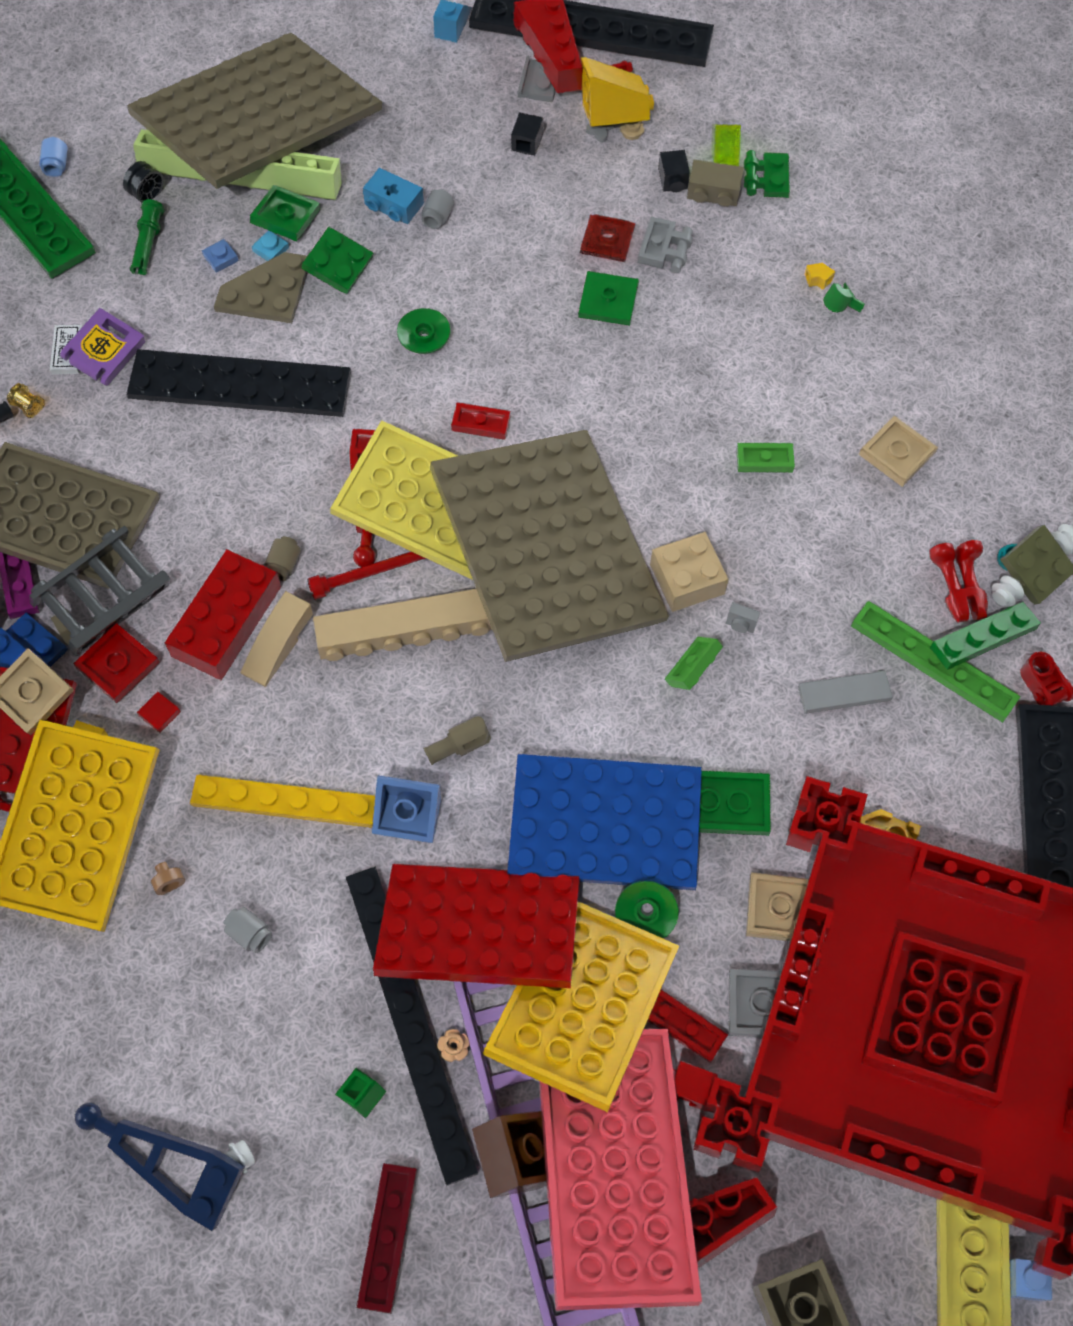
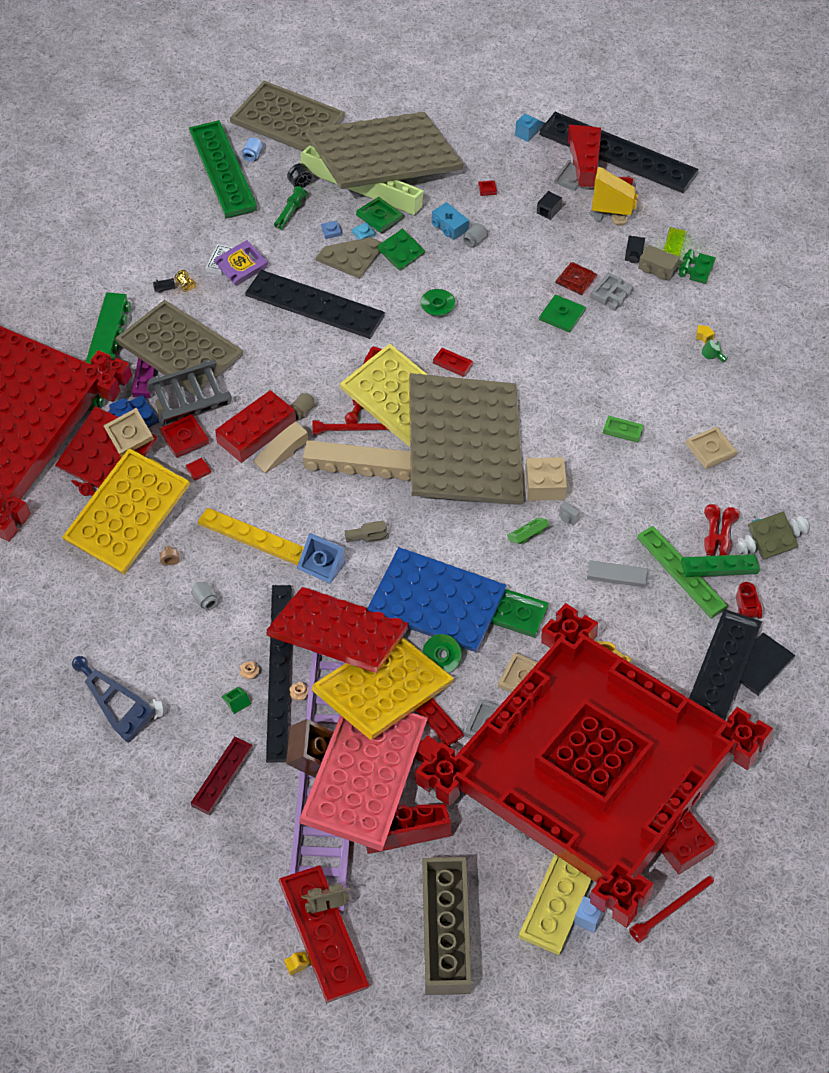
camera: 20 degrees right, 10 degrees down
(83, 89) = (284, 115): none -> dark tan plate
(368, 1041) = (249, 674): none -> light nougat plate
(426, 129) = (487, 188): none -> red tile

